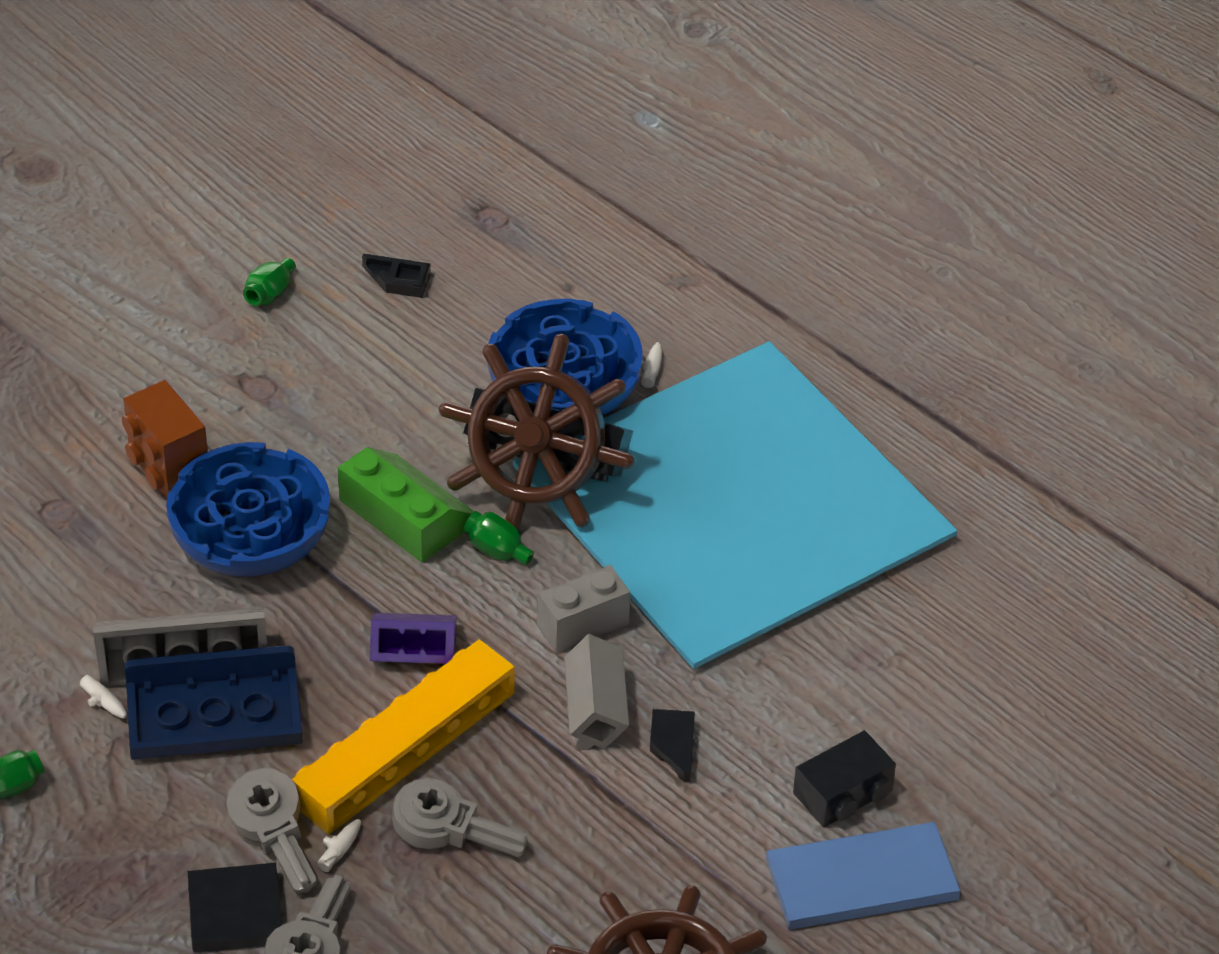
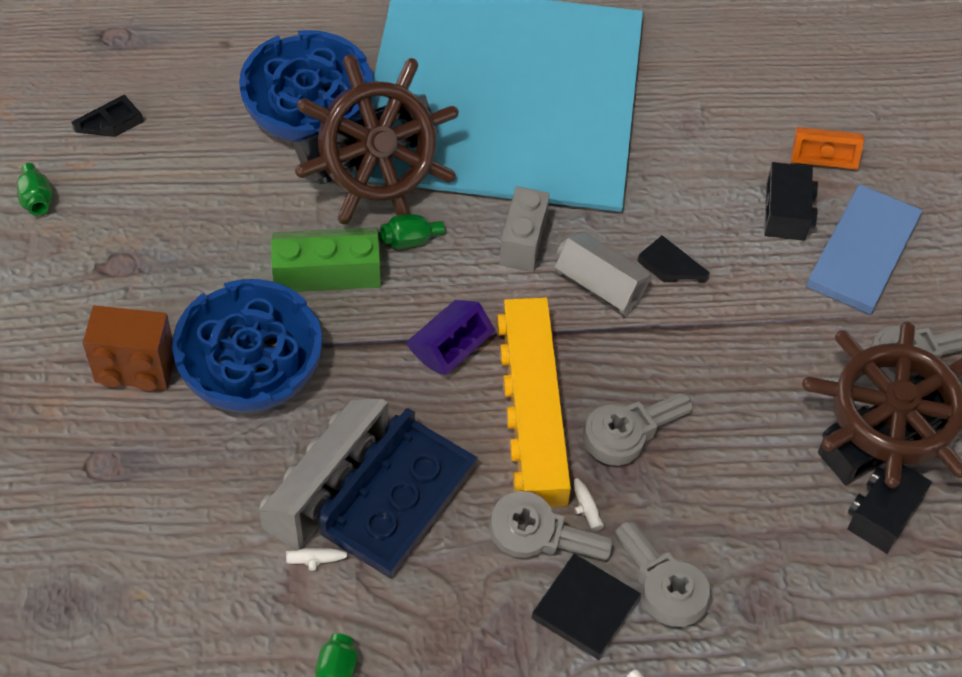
camera: 50 degrees left, 10 degrees up
(949, 769) = (827, 148): none -> orange tile

